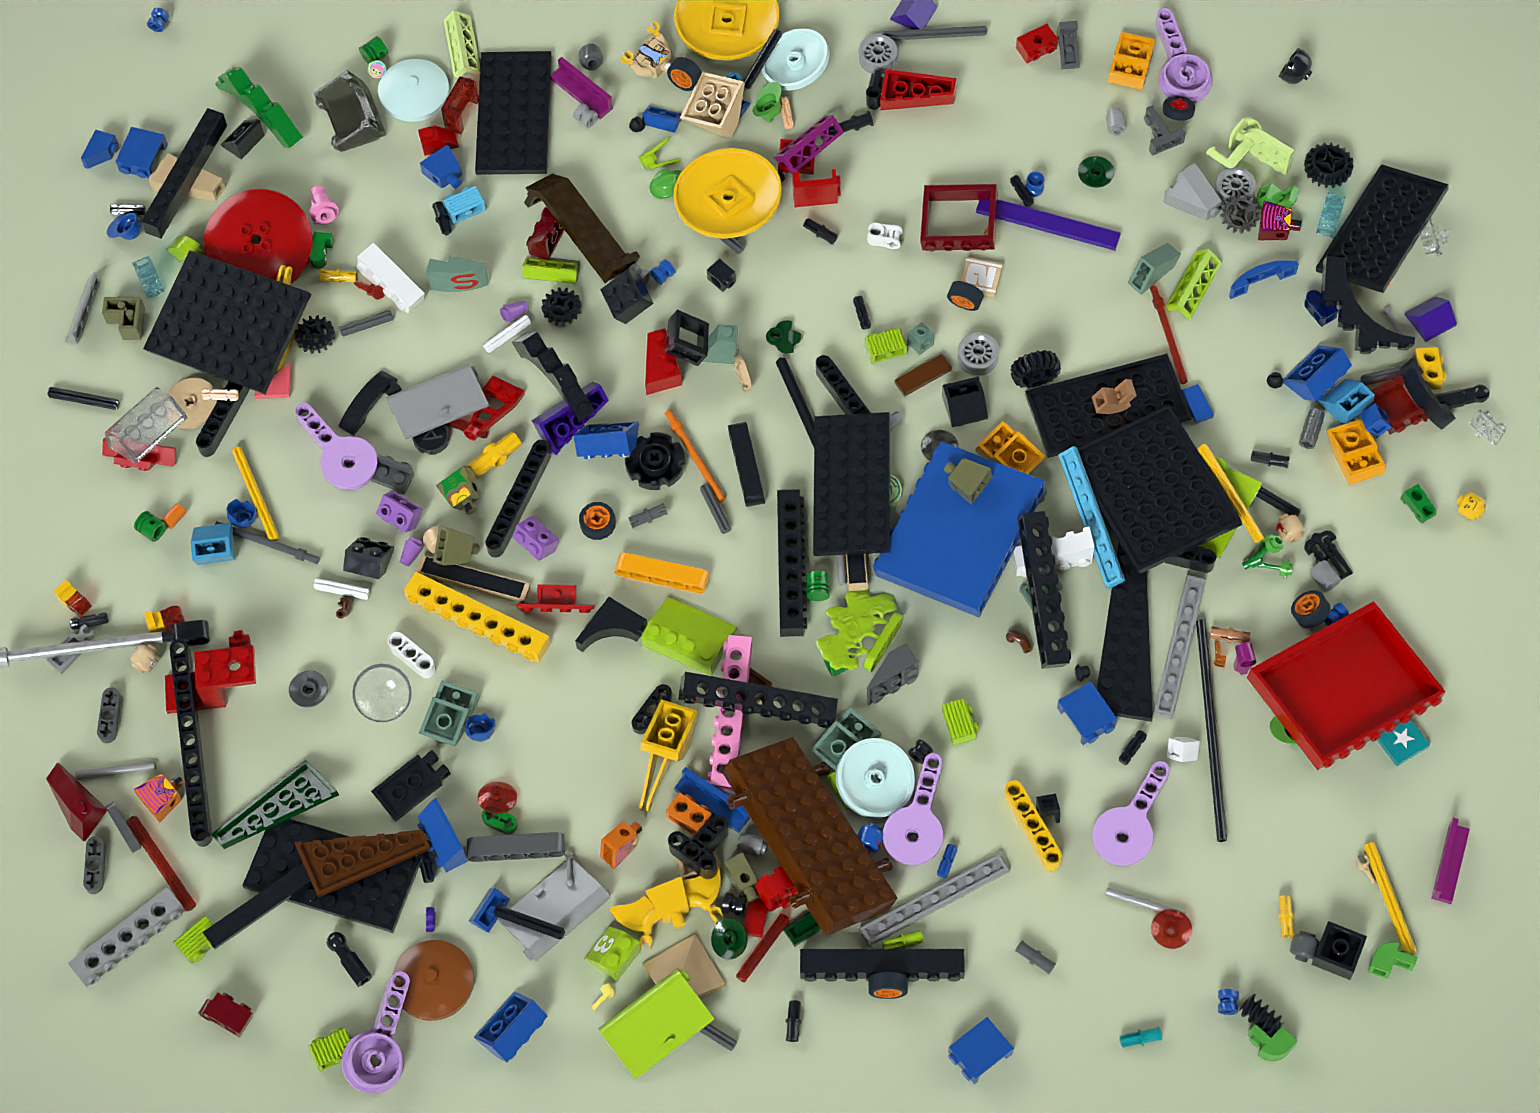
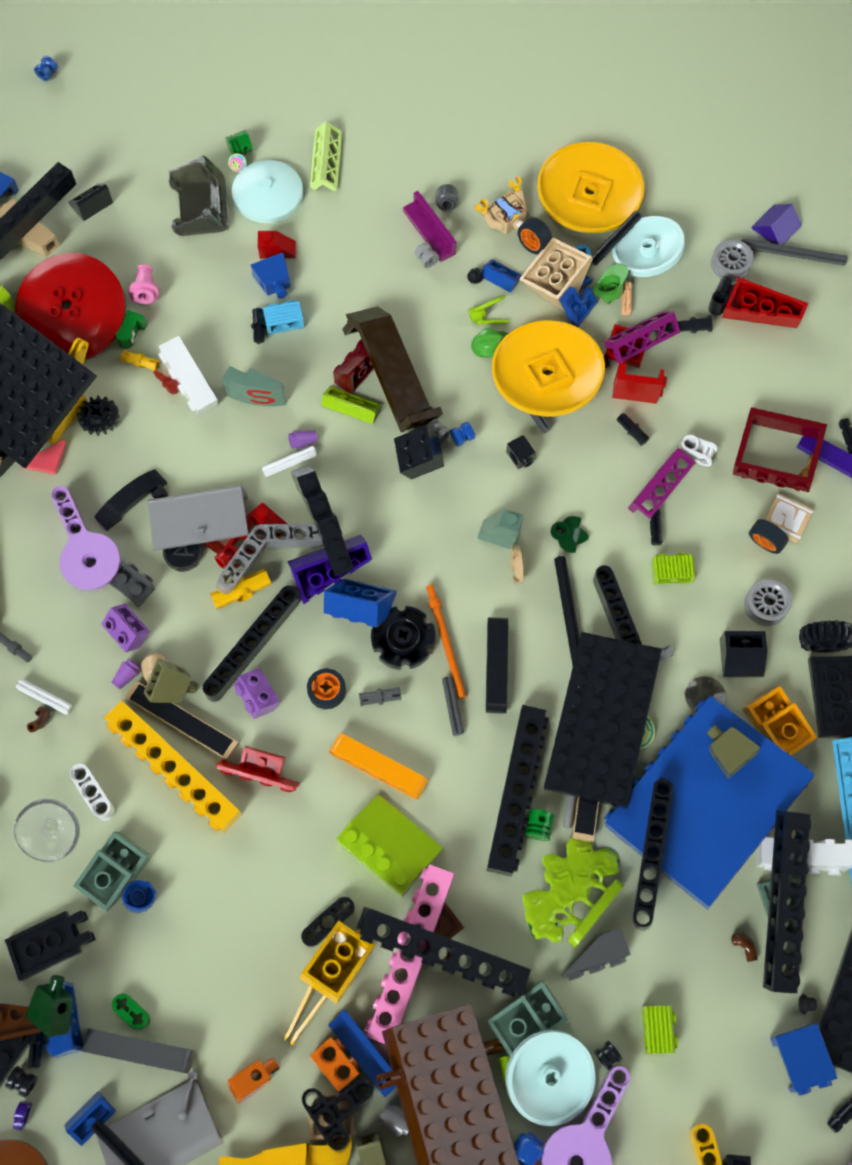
camera: 10 degrees right, 5 degrees up
(253, 96) = (118, 179): green arch -> none
(366, 323) = (152, 416): dark grey axle -> none
(367, 558) = (79, 670): black slope -> none
(424, 895) = (21, 1082): none -> black wheel
(434, 818) = (51, 1007): none -> dark green torso
(461, 489) = (194, 620): torso -> none
(463, 92) = (303, 212): clear red panel -> none
(497, 797) = (135, 994): clear red dish -> none
(513, 113) = (357, 236): black plate -> none
(547, 395) = (270, 541): none -> light grey beam
(561, 306) = (348, 454): black gear -> none
(610, 621) = (311, 807): black arch -> none
(661, 368) = (435, 532): red wedge -> none
(676, 346) = (455, 520): black window -> none
(741, 131) = (578, 306): none -> blue plate
(852, 271) = (655, 482): none -> magenta fence
(919, 587) = (649, 863): none -> black beam
(920, 338) = (711, 571): sand green brick -> none
(923, 375) = (704, 611): reddish brown tile -> none

